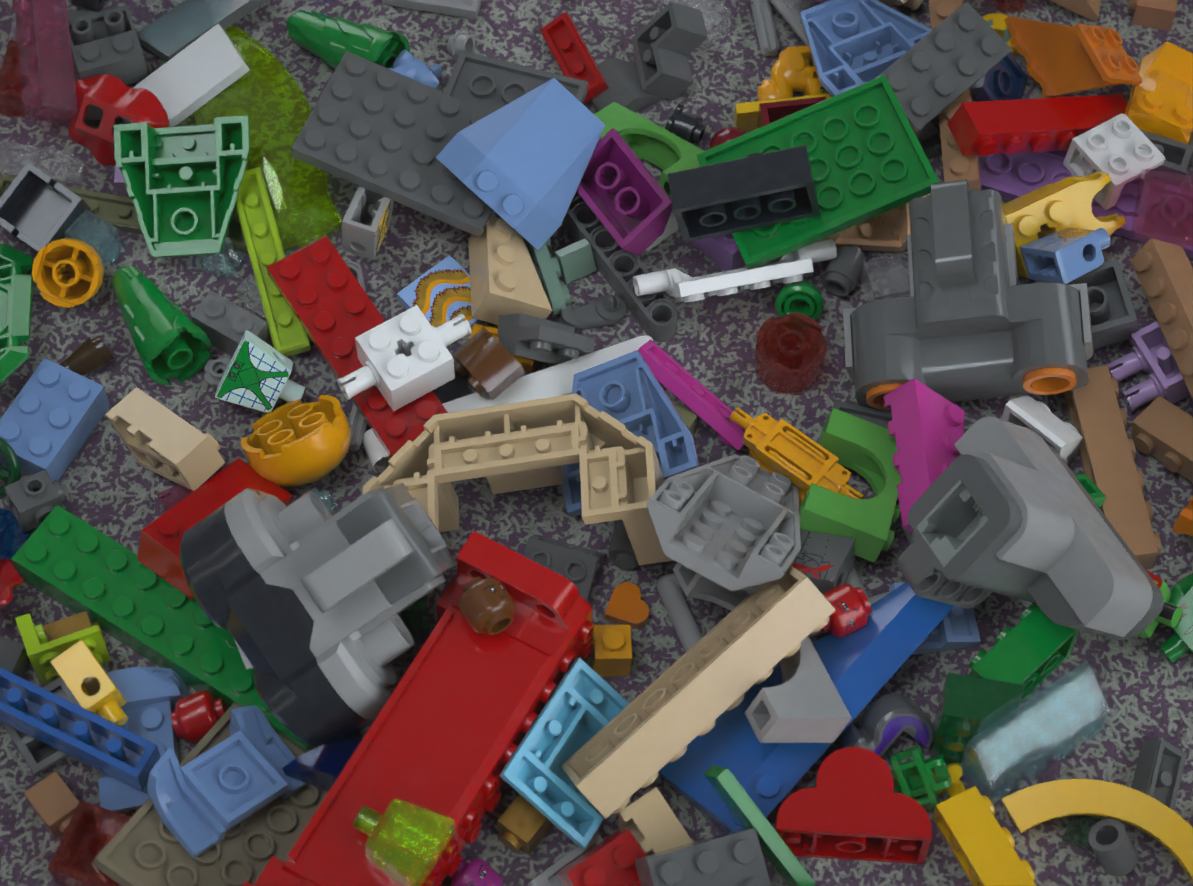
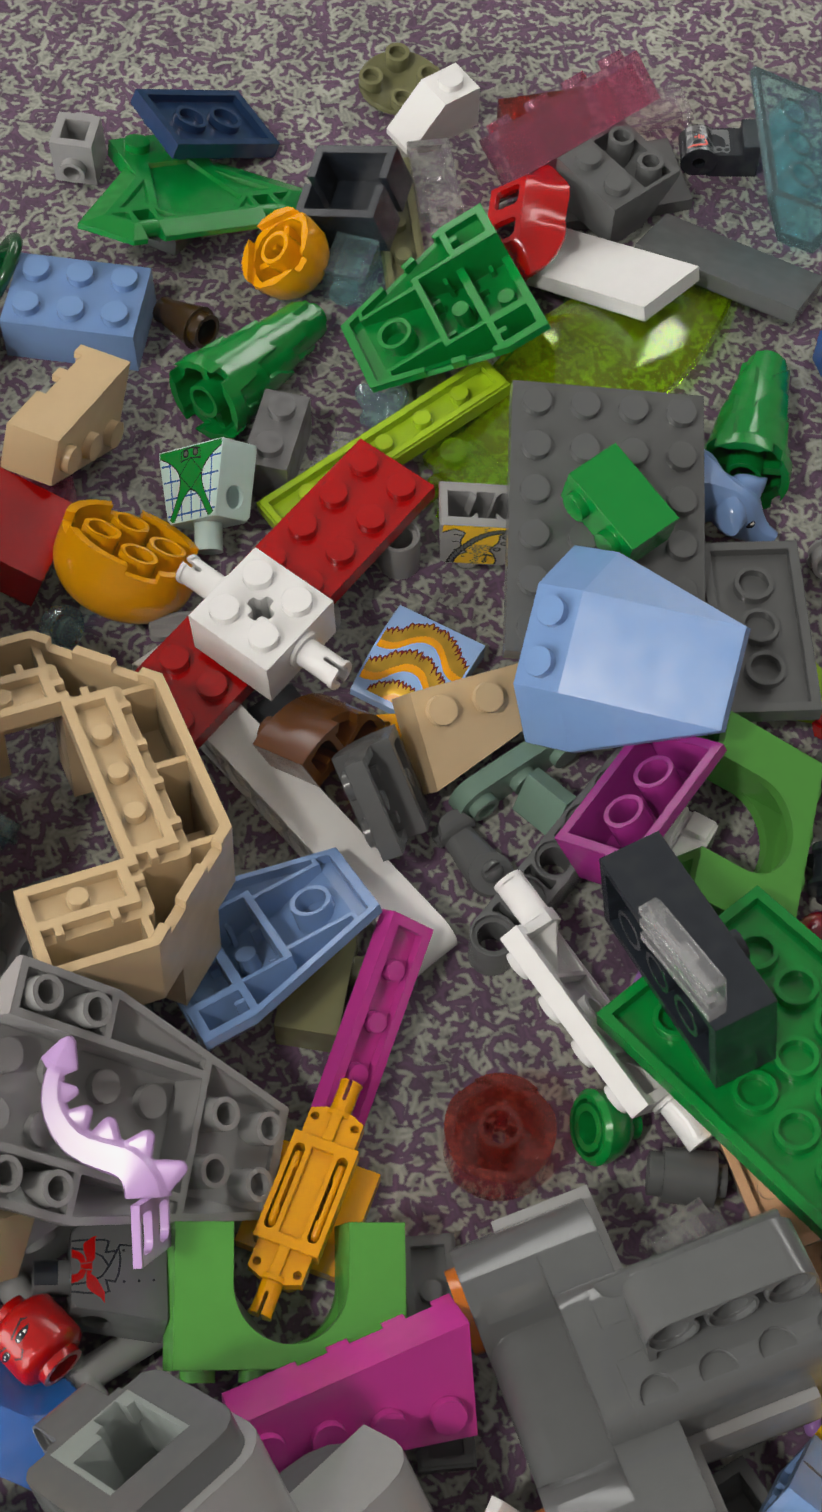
camera: 70 degrees right, 0 degrees up
(418, 122) = (618, 504): none -> green brick
(762, 516) = (107, 1152): none -> lavender piece
(767, 178) = (683, 959): none -> clear tile

